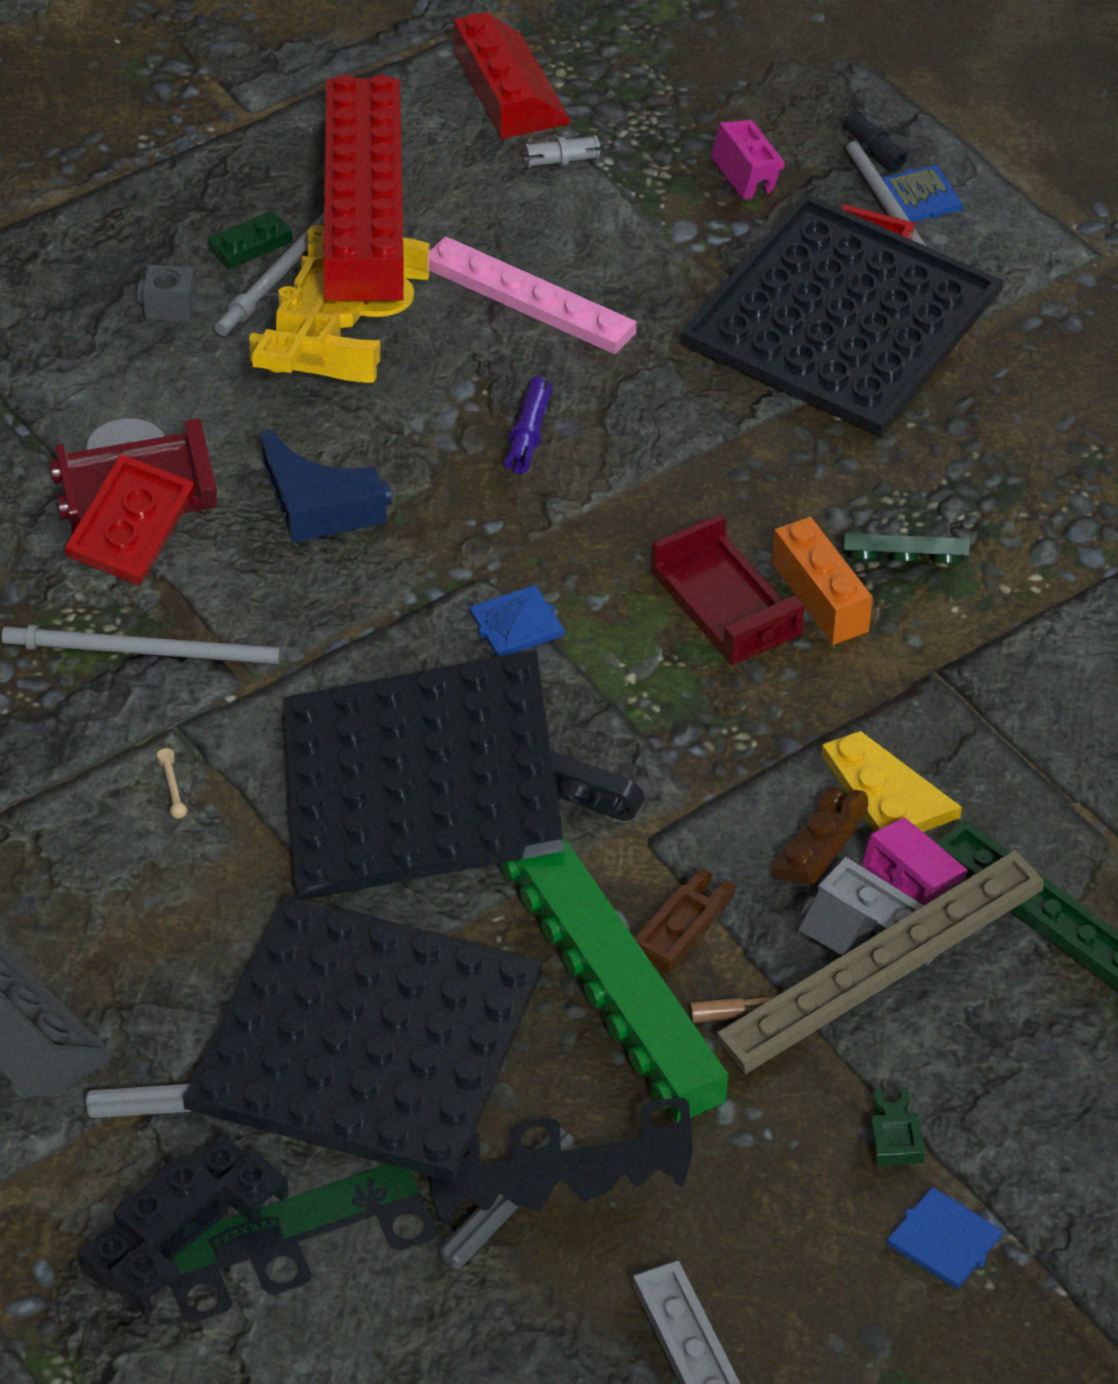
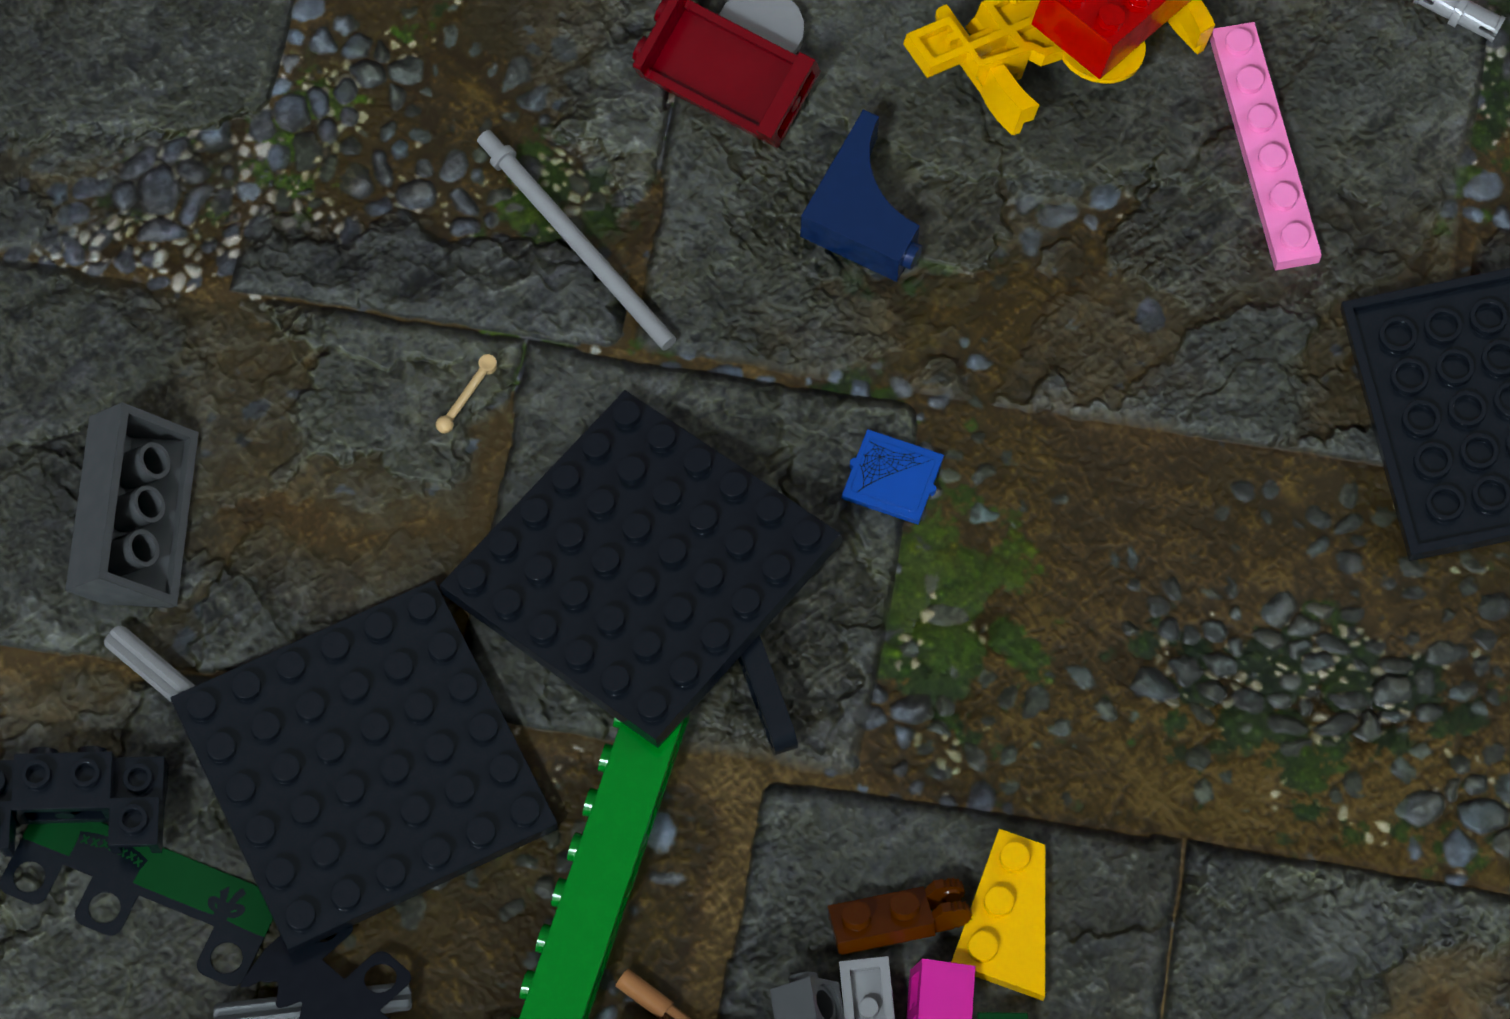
camera: 45 degrees right, 20 degrees up
(130, 519) = (679, 109): red plate -> none
(526, 433) = (1096, 294): dark purple pin -> none
(683, 920) = (703, 889): reddish brown hinge -> none
(724, 591) = (1089, 602): dark red panel -> none
(822, 580) = (1175, 668): orange brick -> none
(905, 547) = (1293, 696): dark green plate -> none

